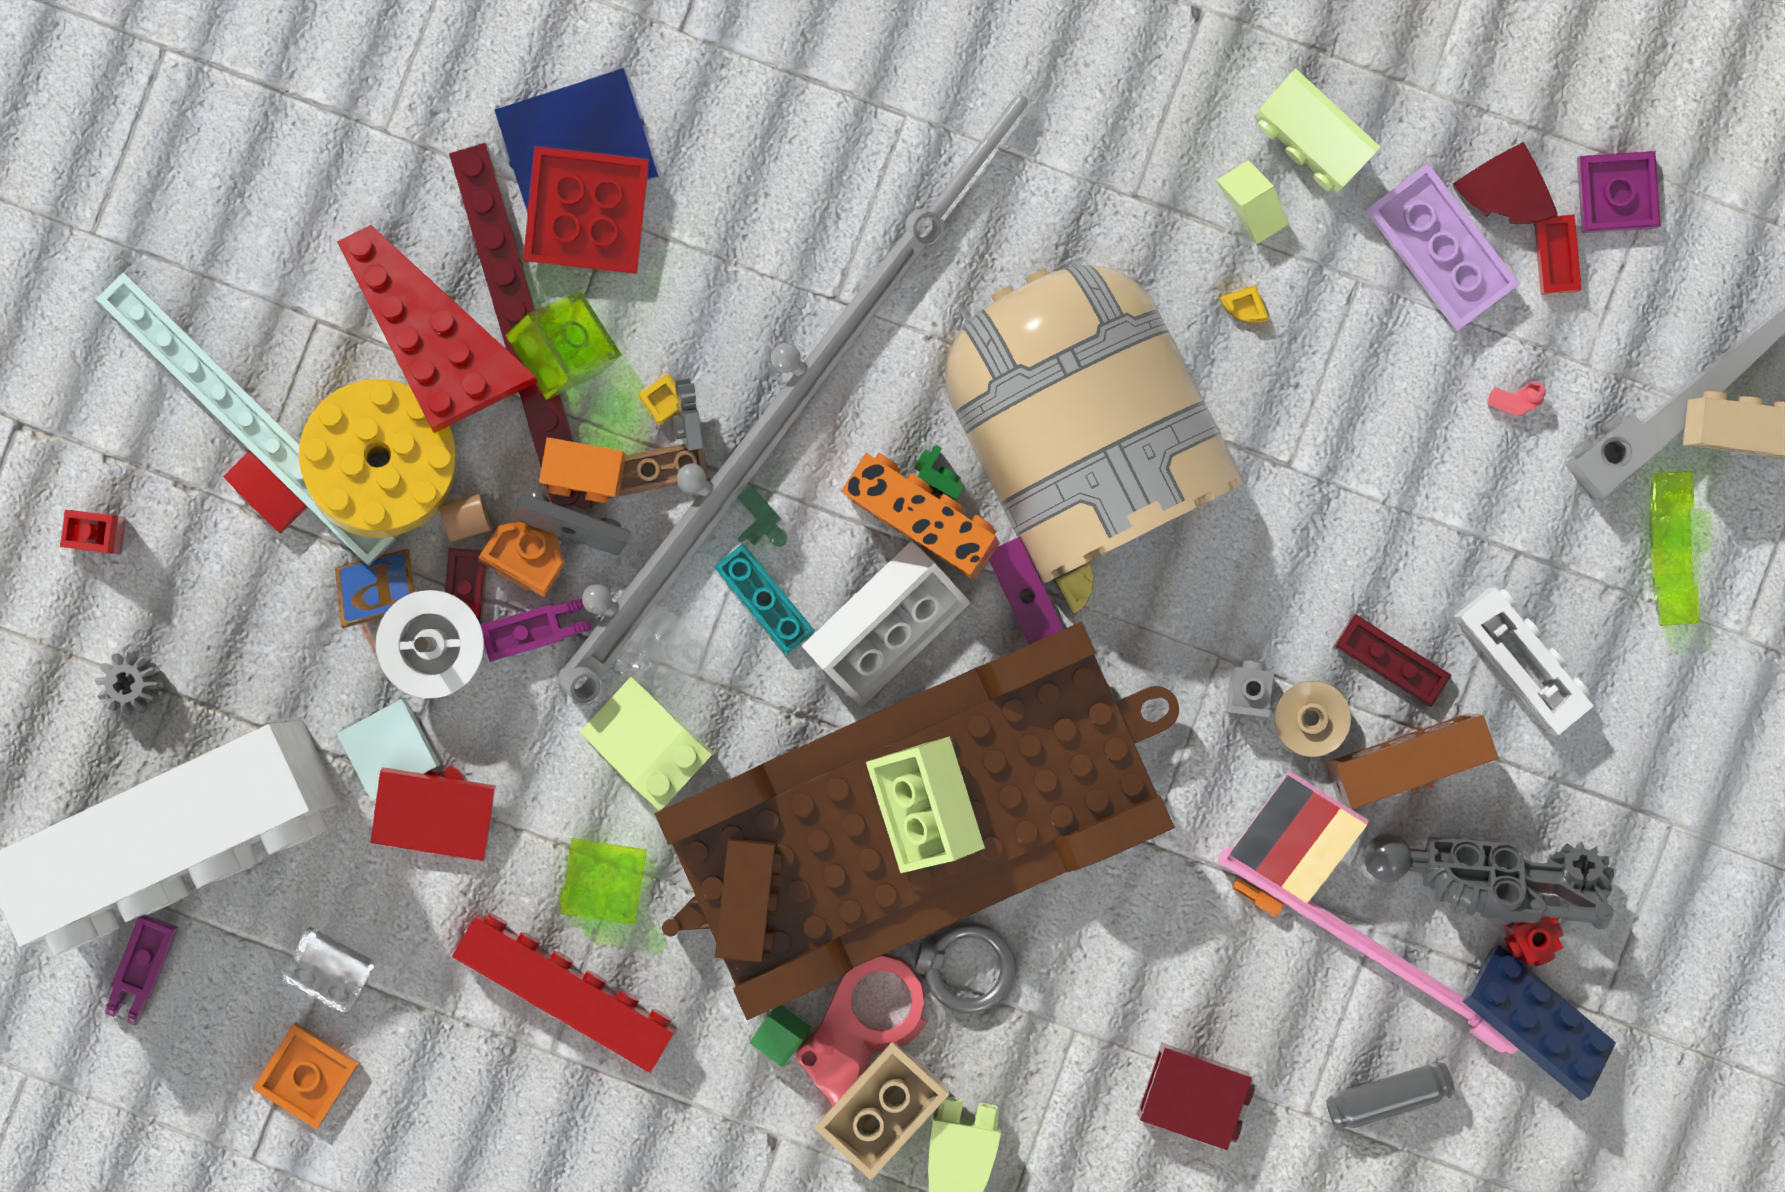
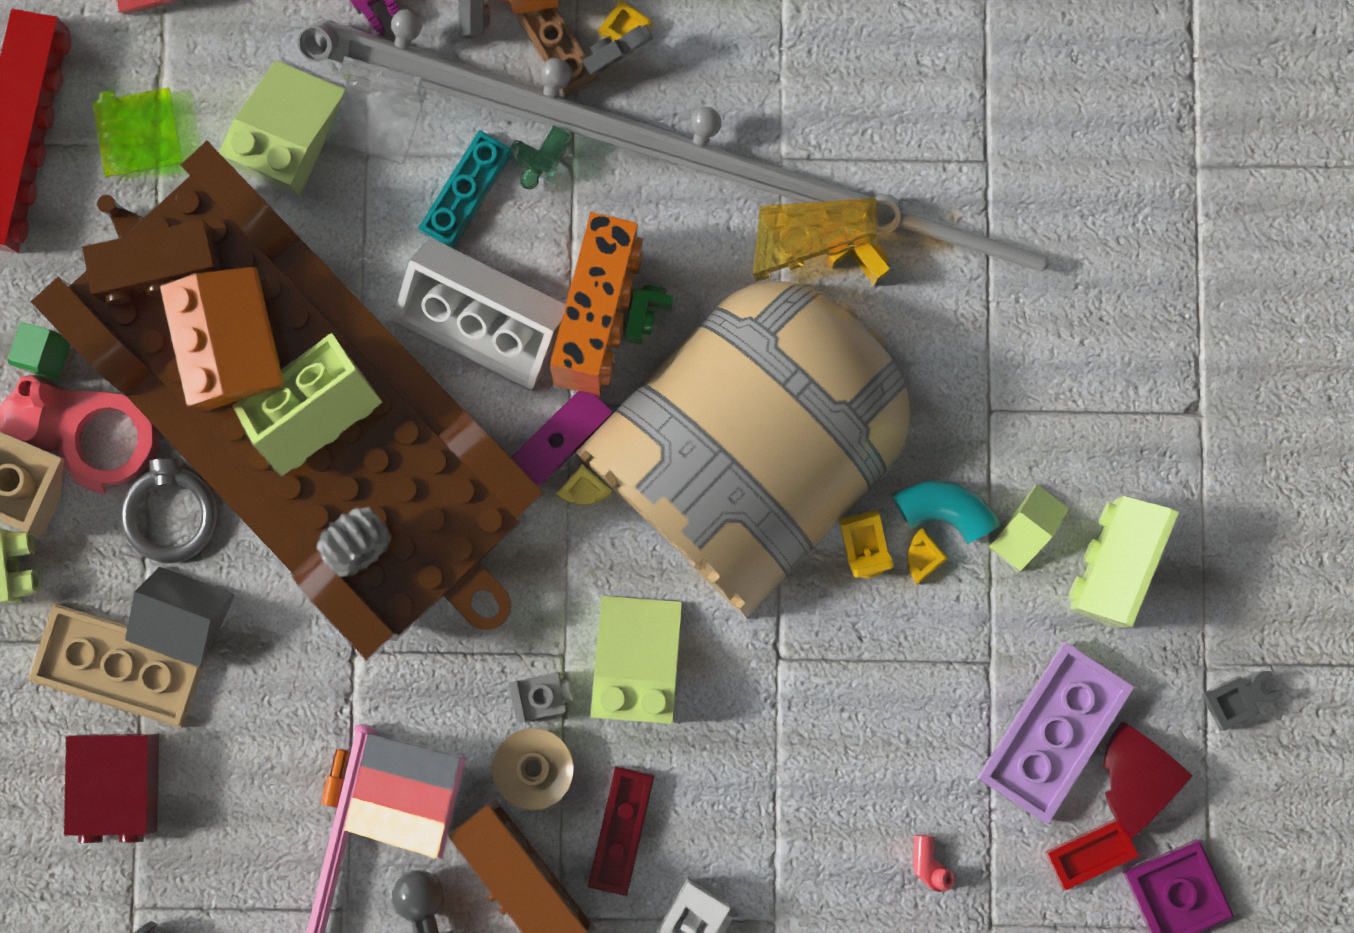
camera: 65 degrees right, 5 degrees down
(840, 858) = (222, 337): none -> orange slope
(918, 304) = (806, 230): none -> clear yellow wing
(961, 255) = (869, 258): none -> yellow bracket
(1065, 988) = (177, 616): none -> dark grey slope
(1066, 803) = (353, 541): none -> light grey gear
(1088, 1057) = (95, 662): none -> tan tile
(1207, 267) = (947, 503): none -> teal cylinder
(1219, 353) = (865, 544): none -> yellow bracket
(1249, 593) = (636, 660): none -> yellowish green slope
(1471, 79) = (1235, 701): none -> dark grey plate

